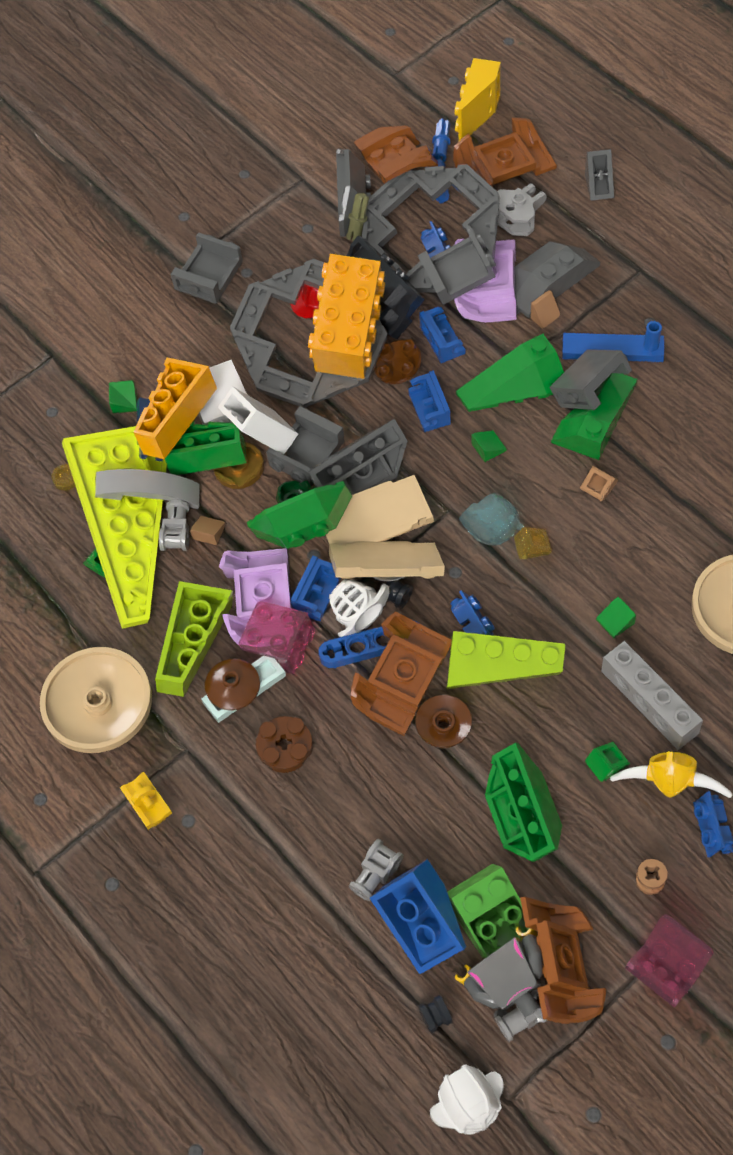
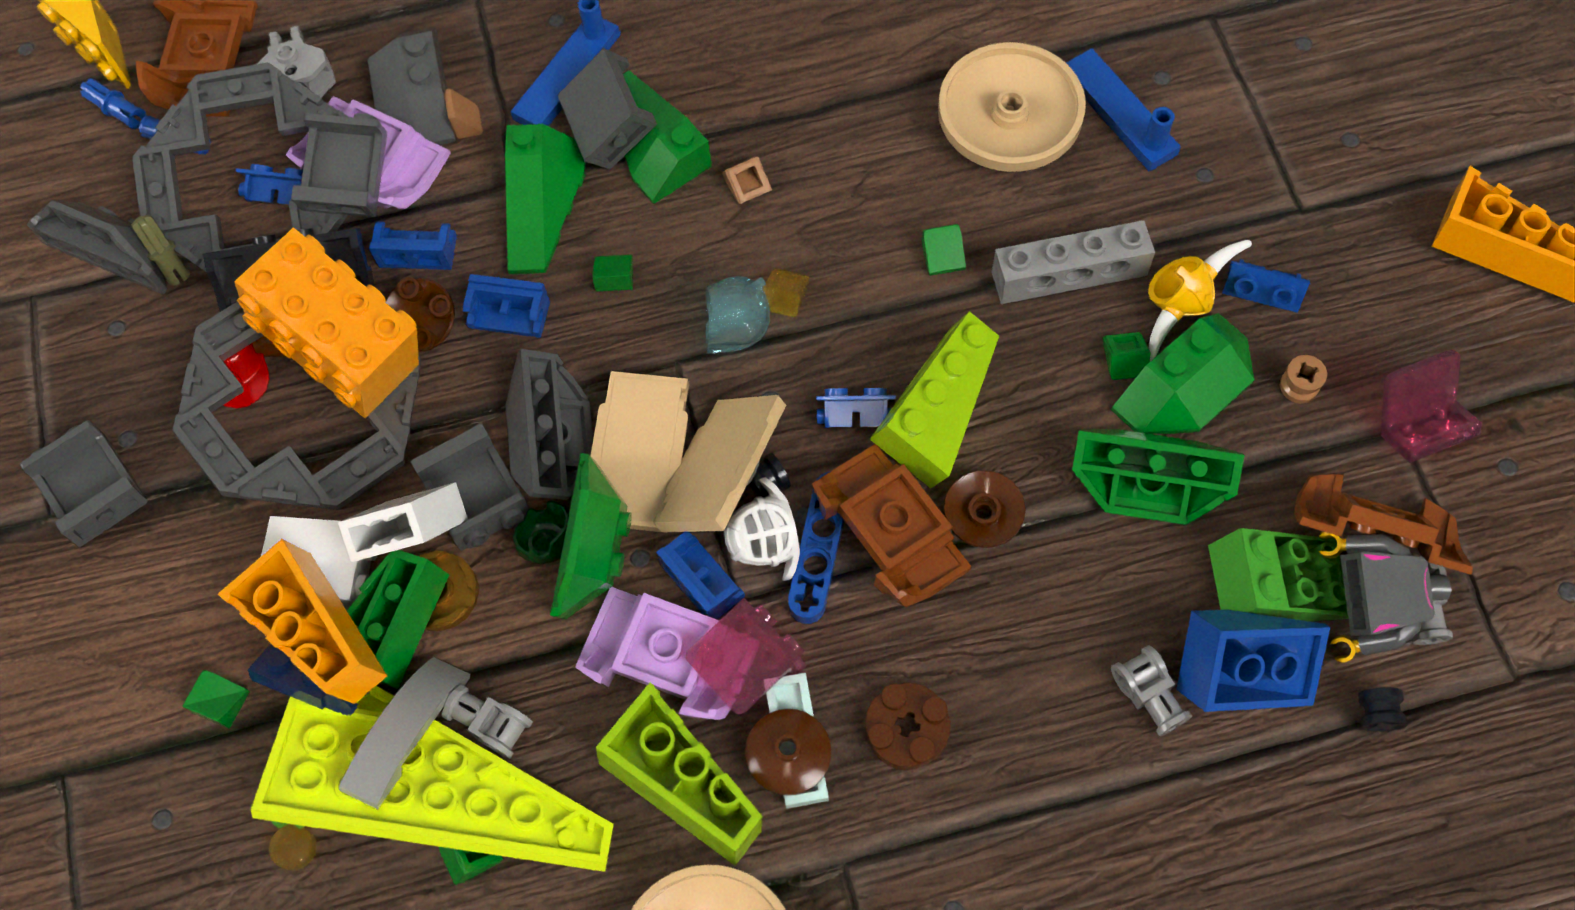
camera: 65 degrees left, 5 degrees up
(207, 530) = (516, 678): medium nougat slope -> none
(393, 152) = (90, 163): dark orange piece -> none
(468, 1100) = (1515, 723): white piece -> none
(611, 805) = (1189, 380): none -> green wedge

